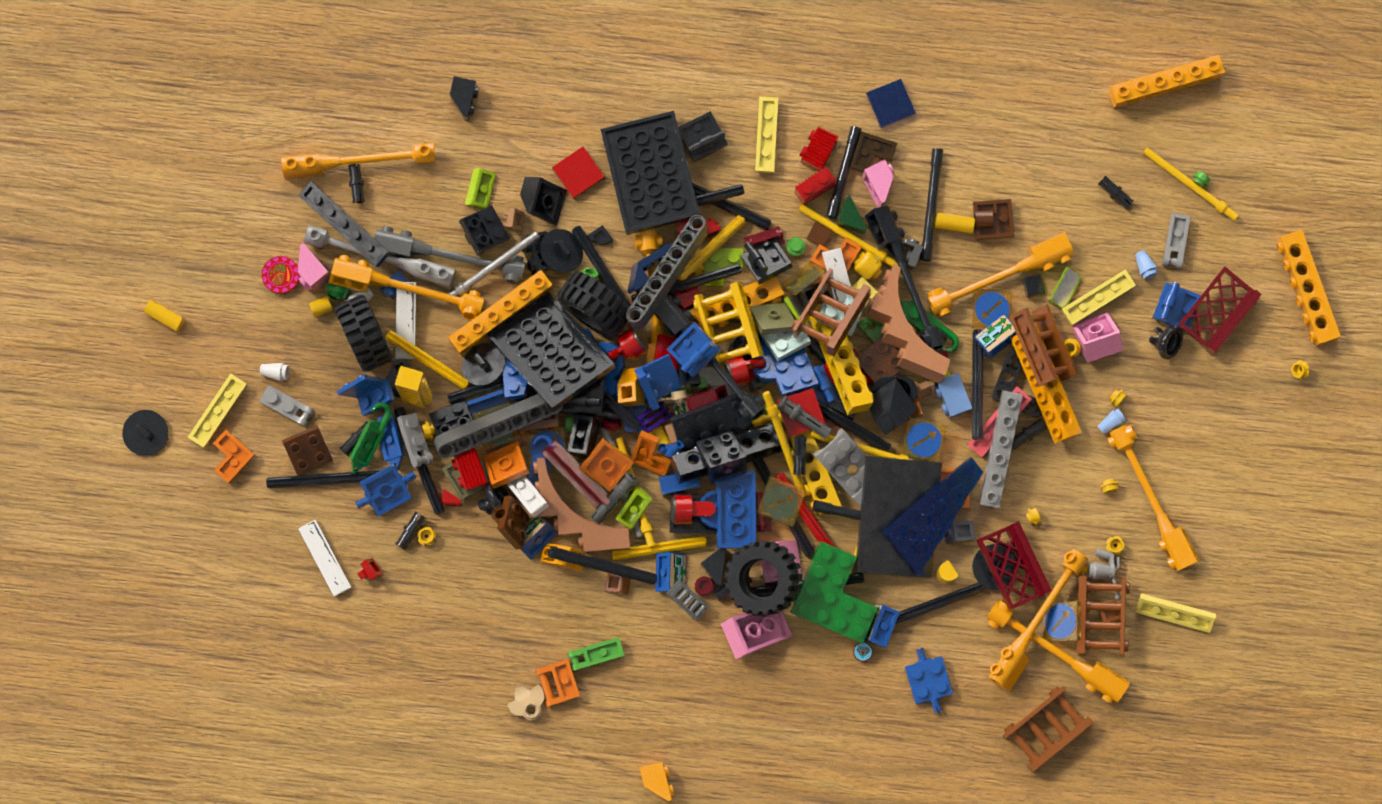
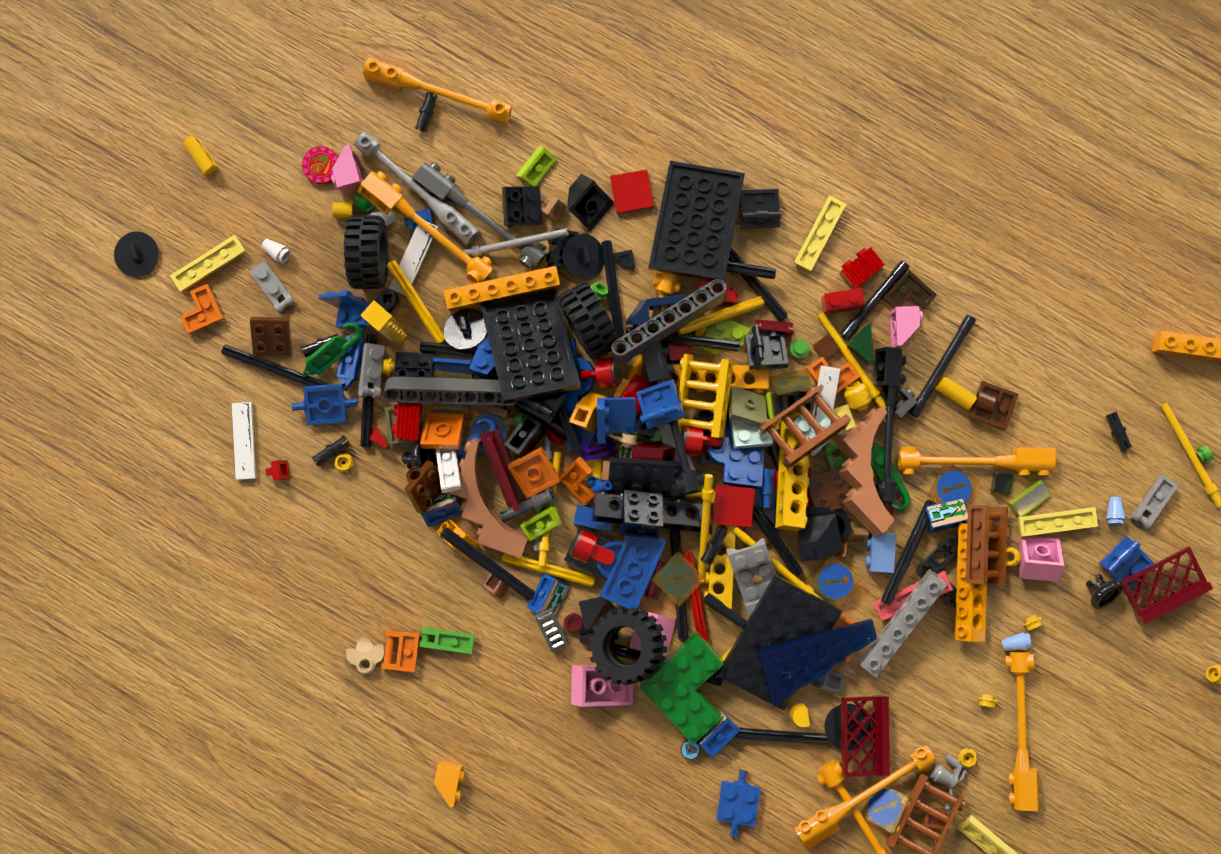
camera: 35 degrees right, 5 degrees up
(344, 224) = (397, 144): plate -> none
(462, 95) = (560, 72): black slope -> none
(795, 412) = (728, 504): dark grey pin -> none
(890, 103) = (947, 255): clear blue tile -> none
(1028, 433) = (934, 618): black pin -> none
(1033, 516) = (904, 697): yellow plate -> none

